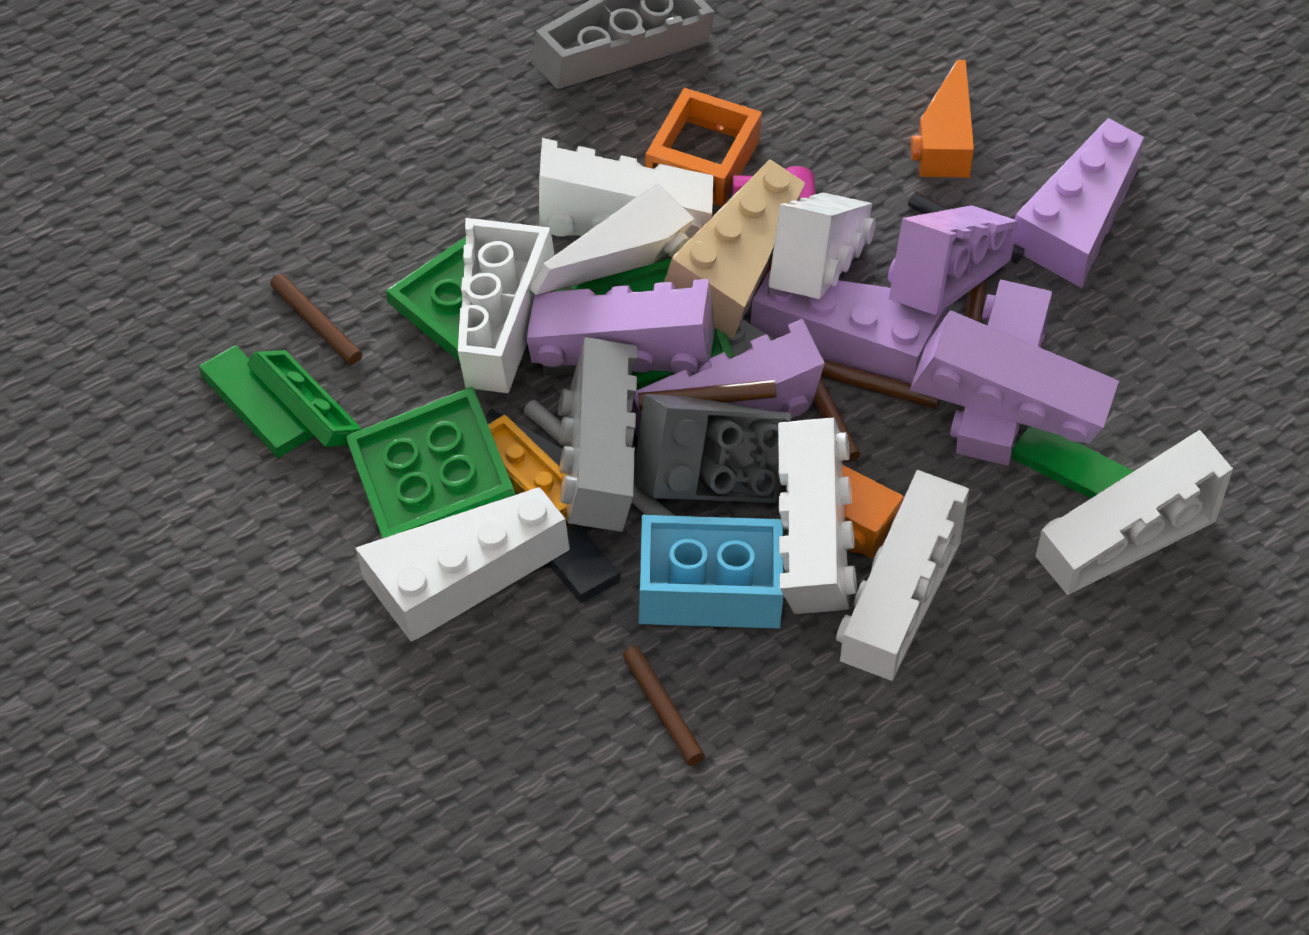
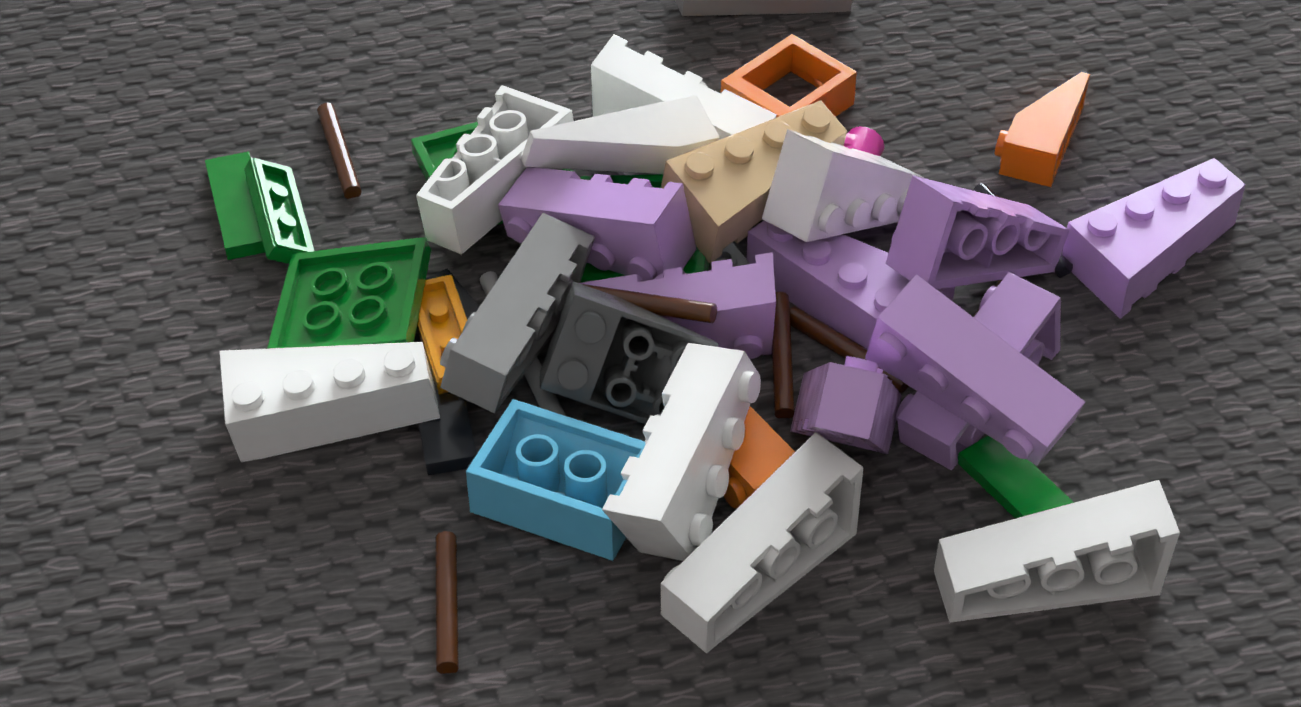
camera: 25 degrees right, 5 degrees down
(931, 438) = (848, 404): none -> lavender wedge

